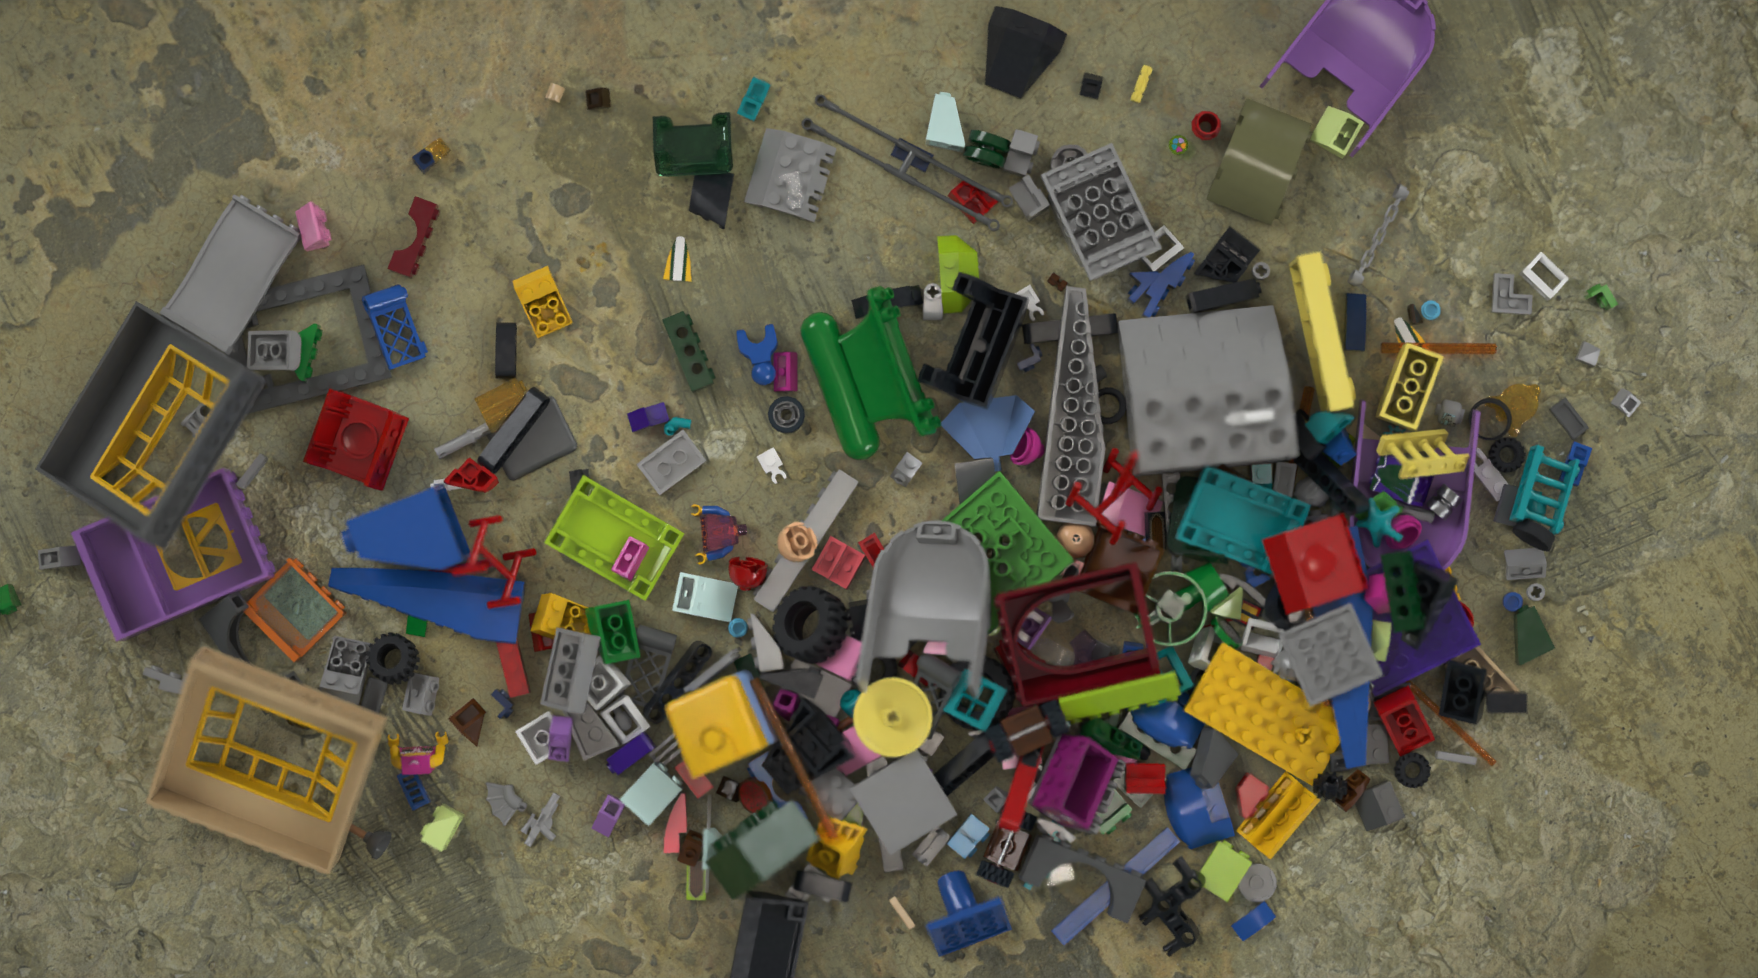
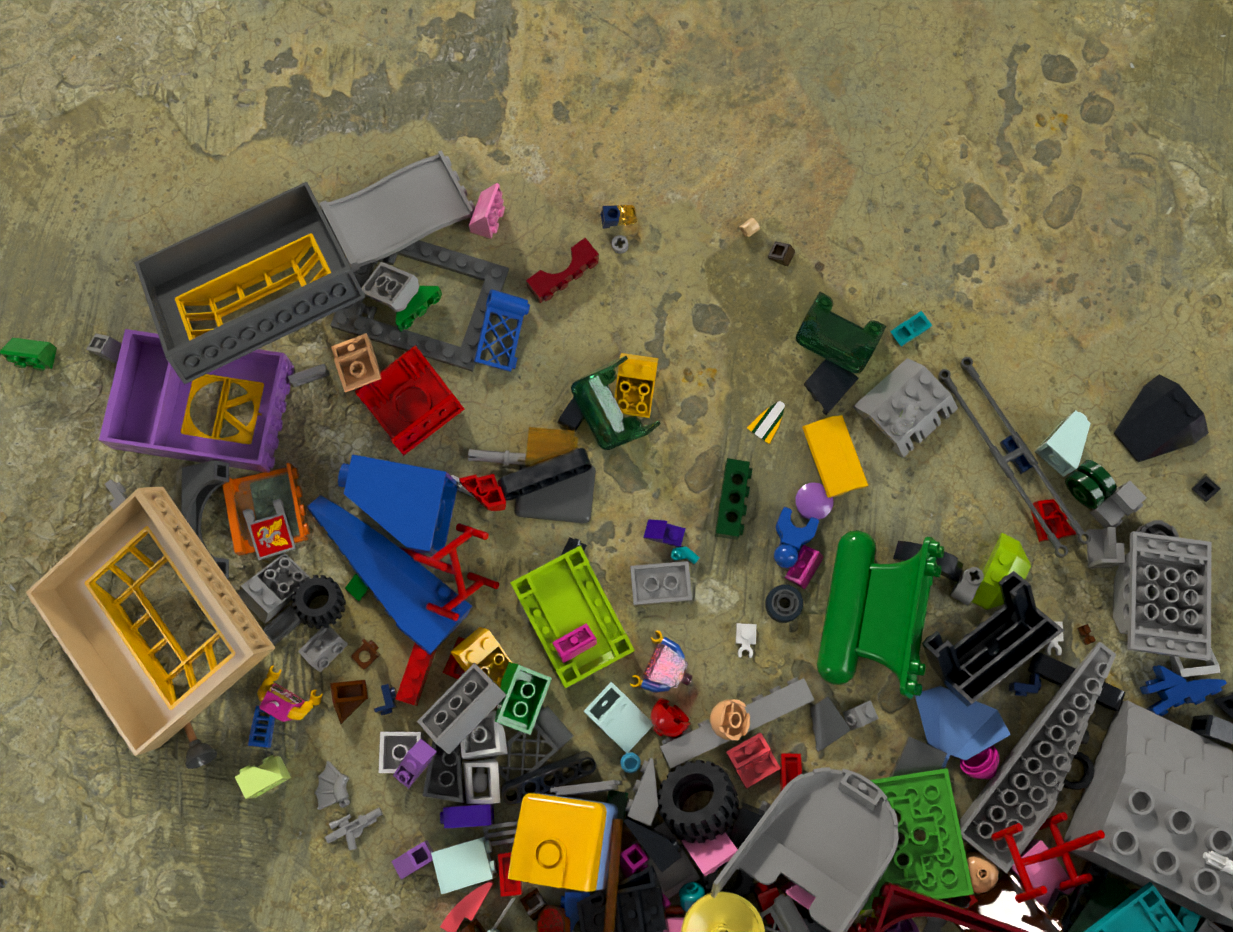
camera: 30 degrees right, 10 degrees down
(287, 435) = (356, 362): none -> light nougat slope
(313, 626) = (271, 534): none -> flag
(442, 180) = (615, 241): none -> light grey bush
(460, 668) = (369, 646): none -> reddish brown bracket
(531, 345) = (602, 410): none -> clear green windscreen
(754, 258) = (835, 456): none -> yellow slope
(760, 309) = (813, 501): none -> medium lavender dish
(882, 494) = (827, 723): none -> dark grey slope

